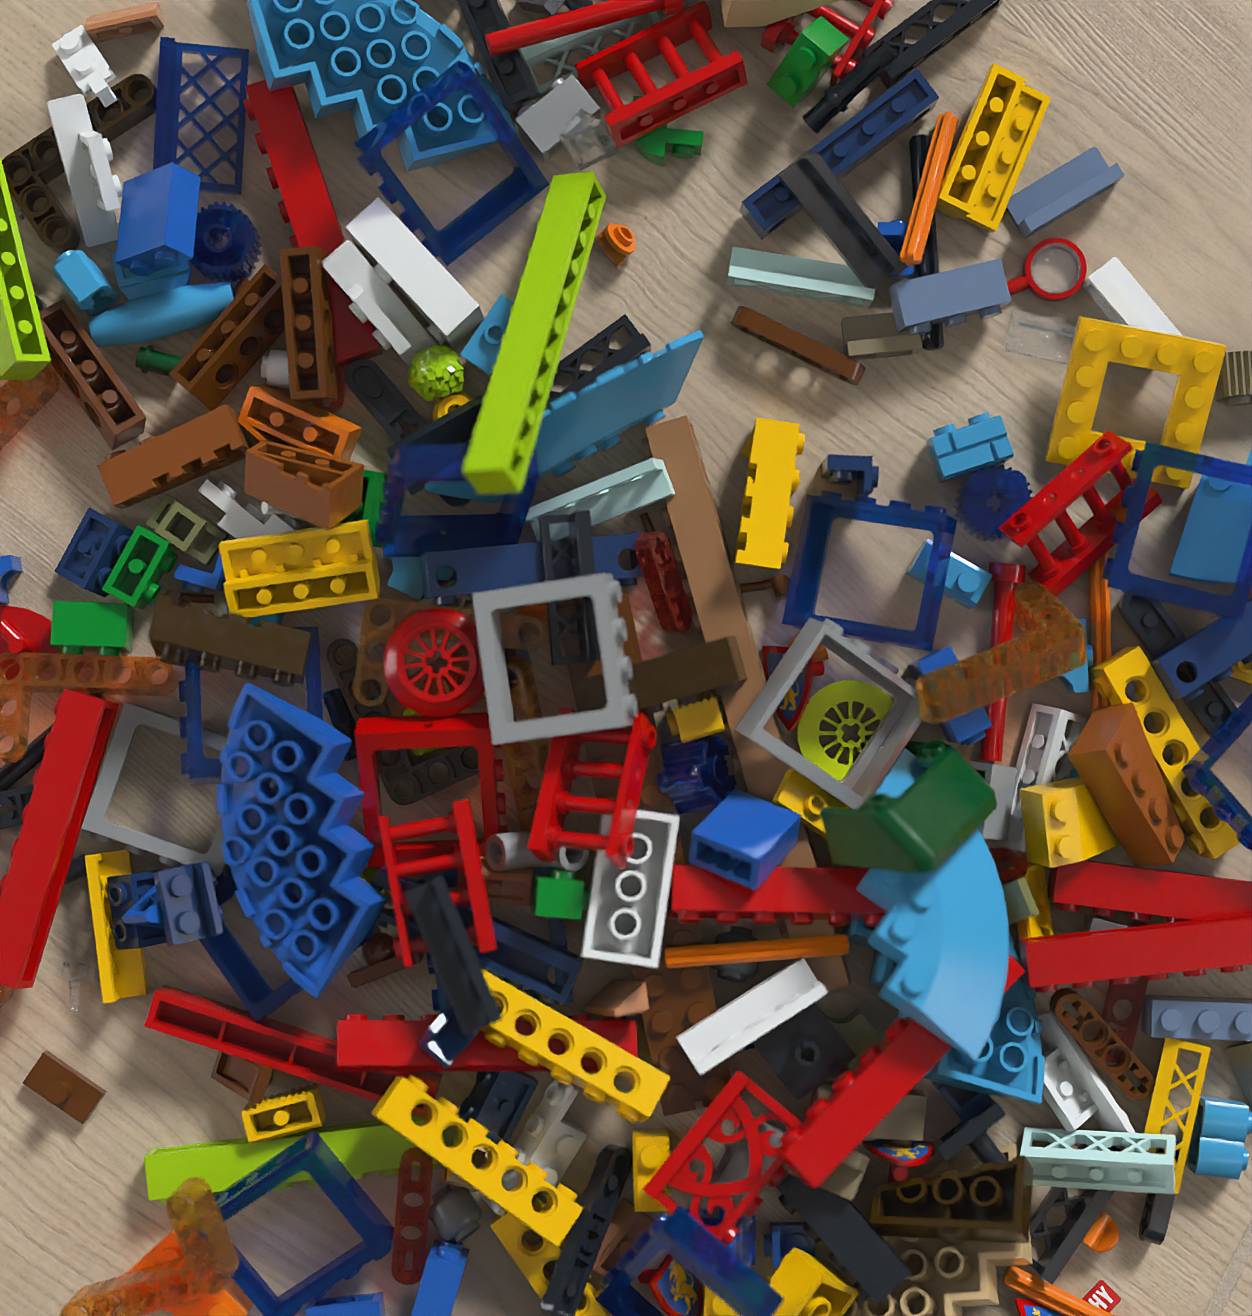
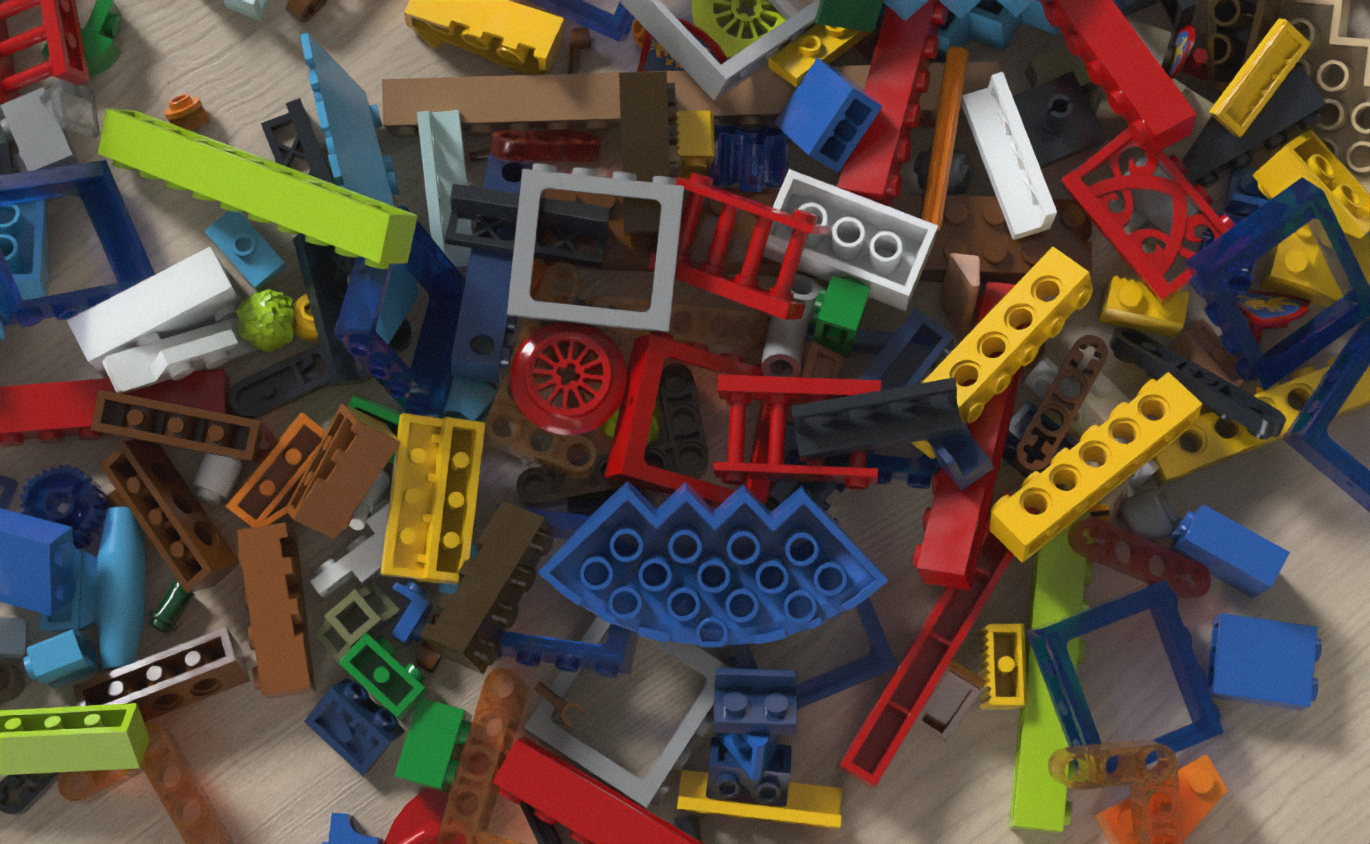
camera: 80 degrees left, 10 degrees down
(150, 730) = (558, 702): none -> reddish brown hand
(381, 958) = (866, 525): reddish brown tile -> none
(532, 1120) = (1059, 403): none -> reddish brown beam
(886, 1236) = (1259, 77): none -> yellow plate

